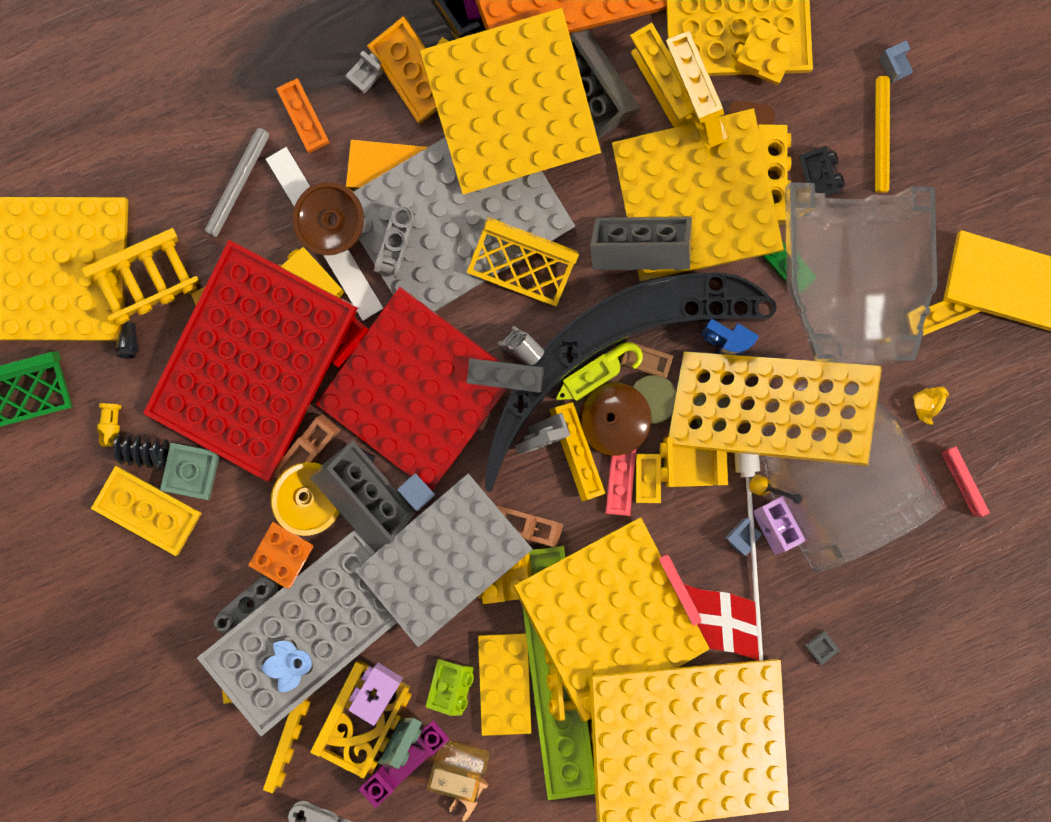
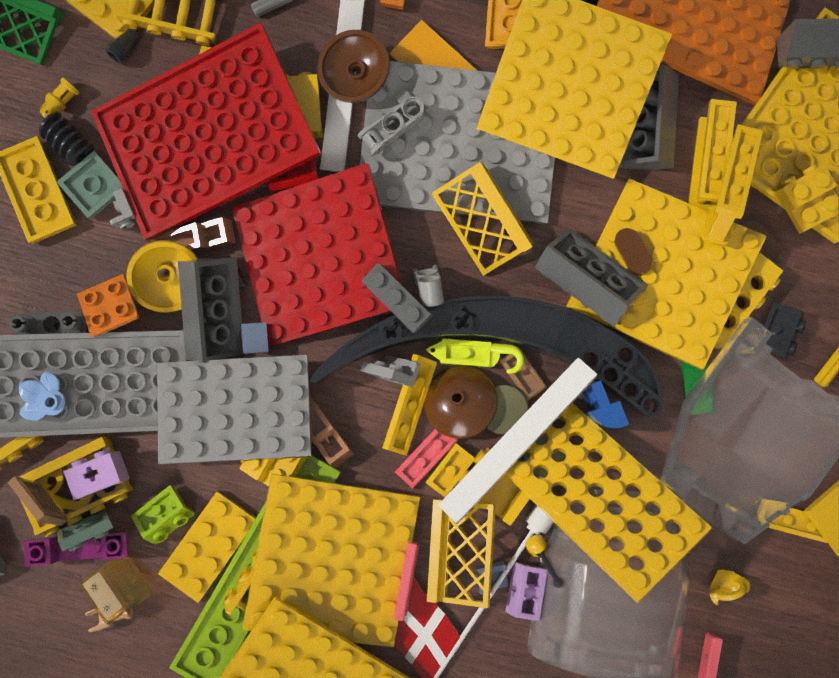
camera: 30 degrees right, 0 degrees up
(228, 469) = (123, 207): none -> light grey bracket
(347, 747) = (37, 501): none -> medium nougat tile
(659, 198) = (633, 251): none -> reddish brown tile
(683, 414) = (517, 440): none -> white tile
(686, 541) = (440, 556): none -> yellow fence

